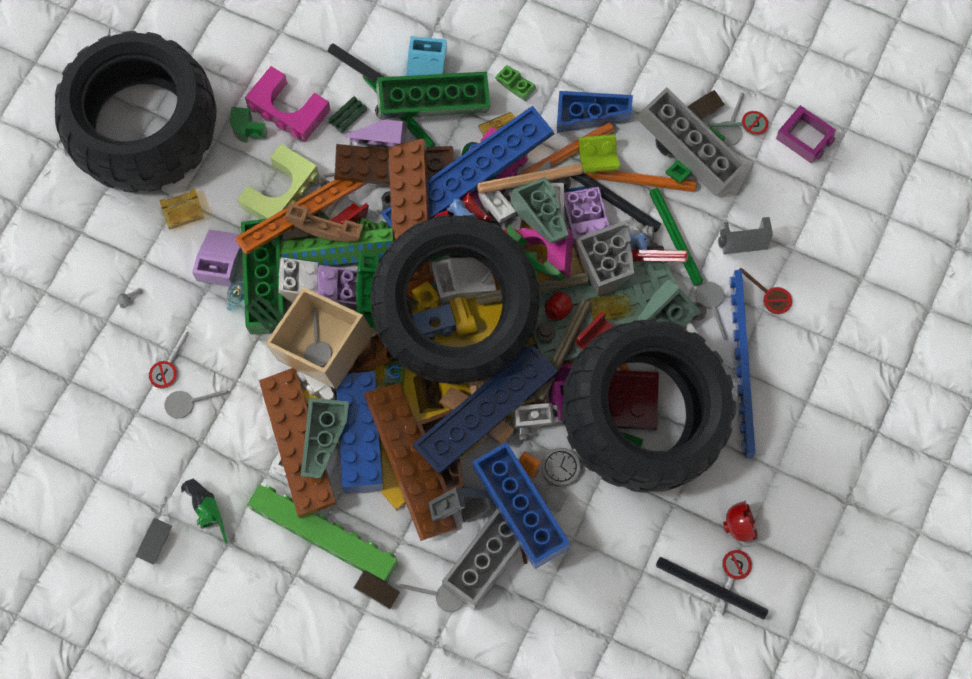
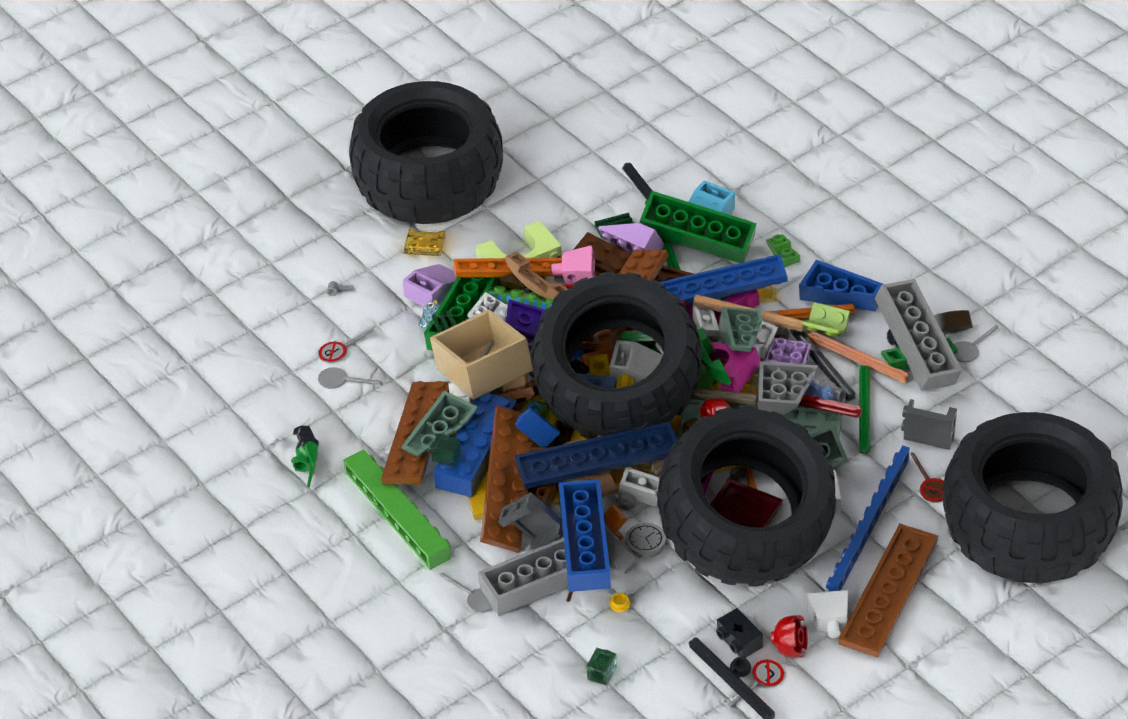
camera: 25 degrees right, 25 degrees down
(153, 541) = (246, 460): dark grey slope -> none
(242, 126) = (518, 202): green brick -> none
(299, 123) = (565, 215): dark pink arch -> none
(333, 274) = (523, 318): none -> dark purple tile
(345, 464) = (445, 450): none -> clear green brick
(350, 192) = (576, 265): none -> bright pink torso
(376, 589) = (418, 565): dark brown slope -> none
(411, 398) = (537, 427): none -> blue slope
(576, 548) = (620, 602): none -> yellow plate
(595, 625) = (601, 666): none -> clear green brick
(703, 311) = (849, 469): clear smoke plate -> none
(705, 536) = (739, 633): none -> black brick
(711, 296) = (870, 465): light grey piece -> none
(712, 570) = (740, 666): none -> black plate
(752, 122) = (991, 350): piece -> none
(758, 478) = (828, 611): none -> white torso
(794, 430) = (888, 590): none -> dark orange plate
(798, 146) = (1035, 358): magenta window -> none
(900, 238) = (1023, 543): none -> black tyre

